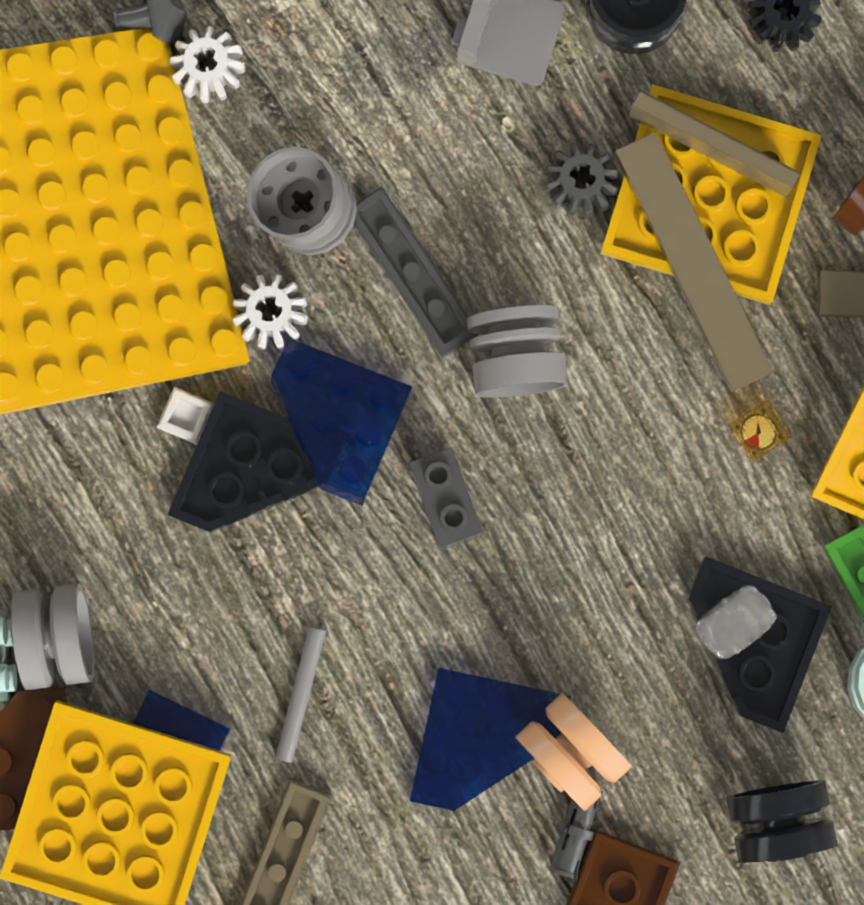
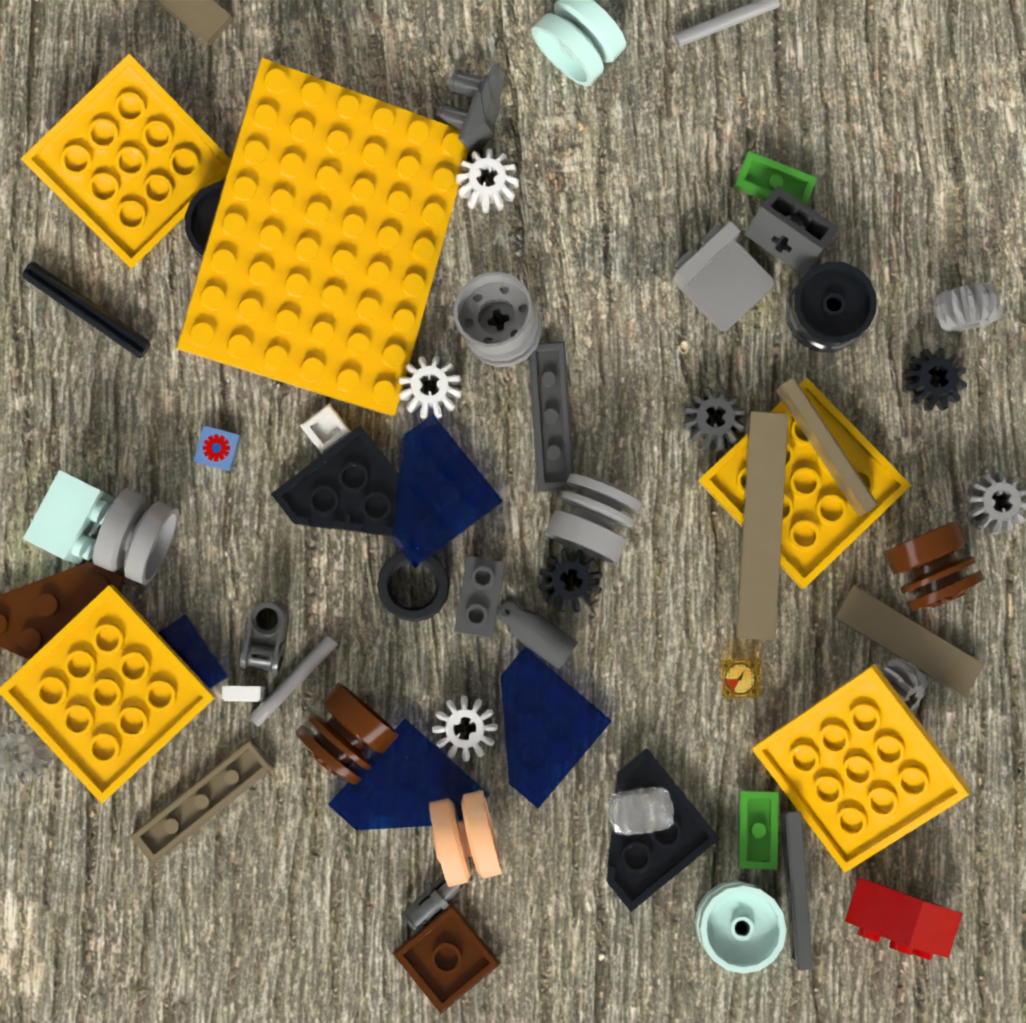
camera: 25 degrees right, 0 degrees up
(83, 499) = (217, 448): none -> medium blue tile
(248, 670) = (264, 641): none -> dark grey piece
(257, 736) = (243, 693): none -> white tile
(381, 557) = (406, 613): none -> black tyre
(389, 716) = (346, 734): none -> reddish brown wheel
(491, 638) = (474, 737): none -> white gear
(520, 441) = (582, 576): none -> black gear
(527, 502) = (538, 633): none -> dark grey piece
(587, 594) = (544, 726): none -> clear blue plate
(782, 829) = (591, 978): black wheel -> none

